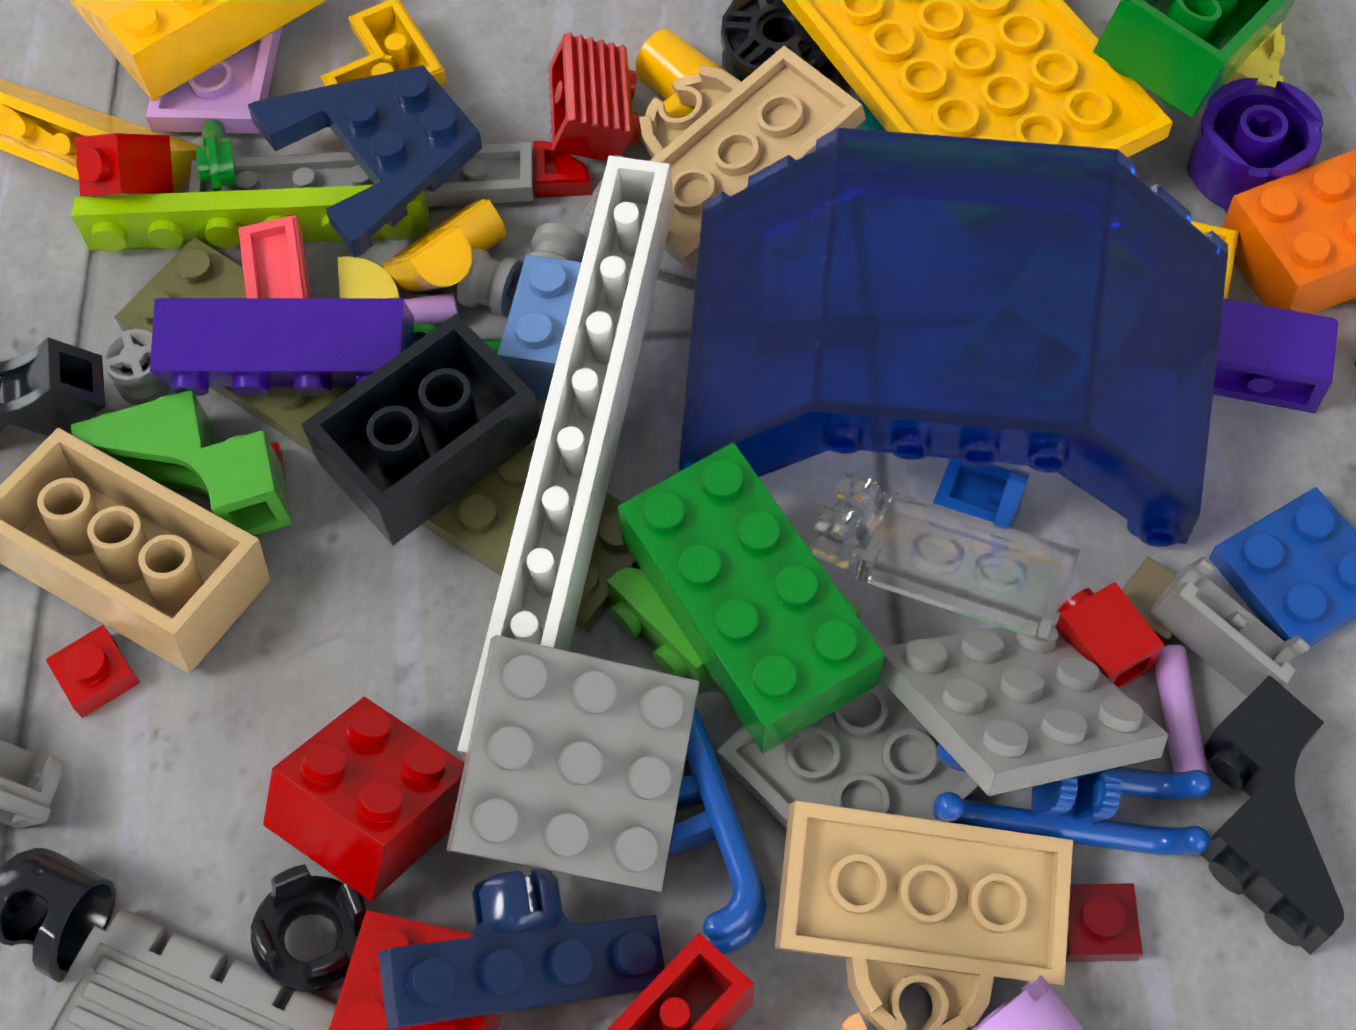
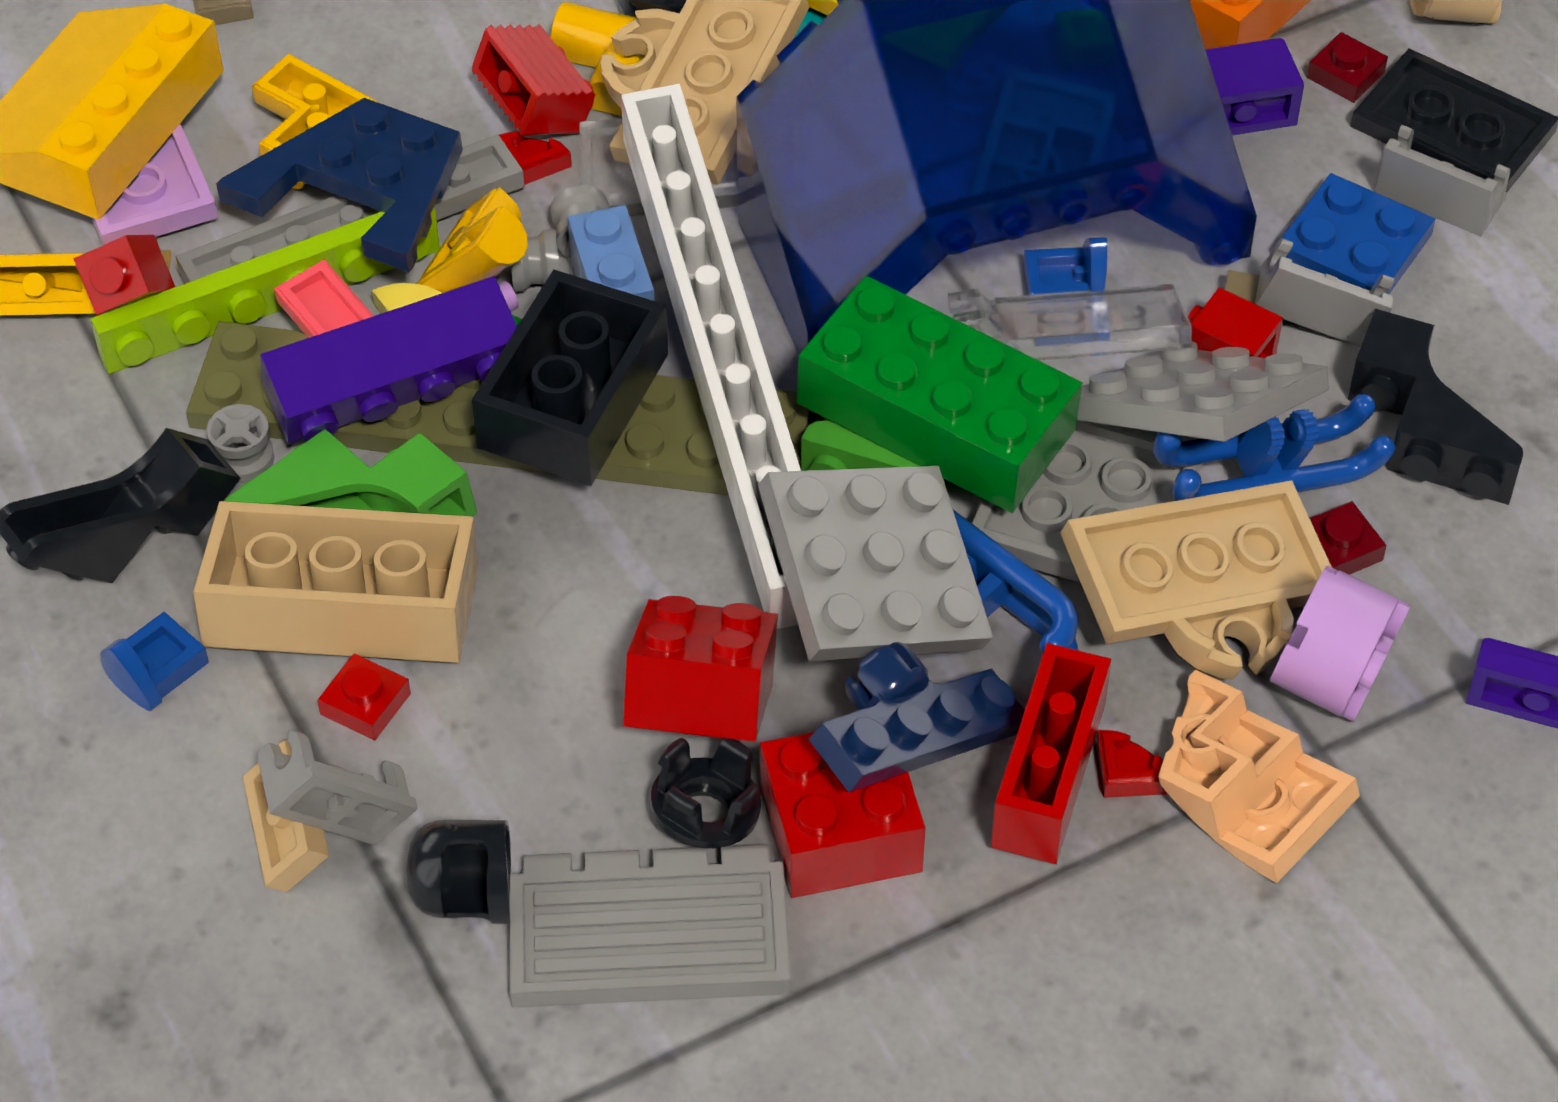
camera: 30 degrees left, 10 degrees down
(215, 156) = (212, 239): green plate -> none
(1180, 710) = (1295, 342): lavender piece -> none

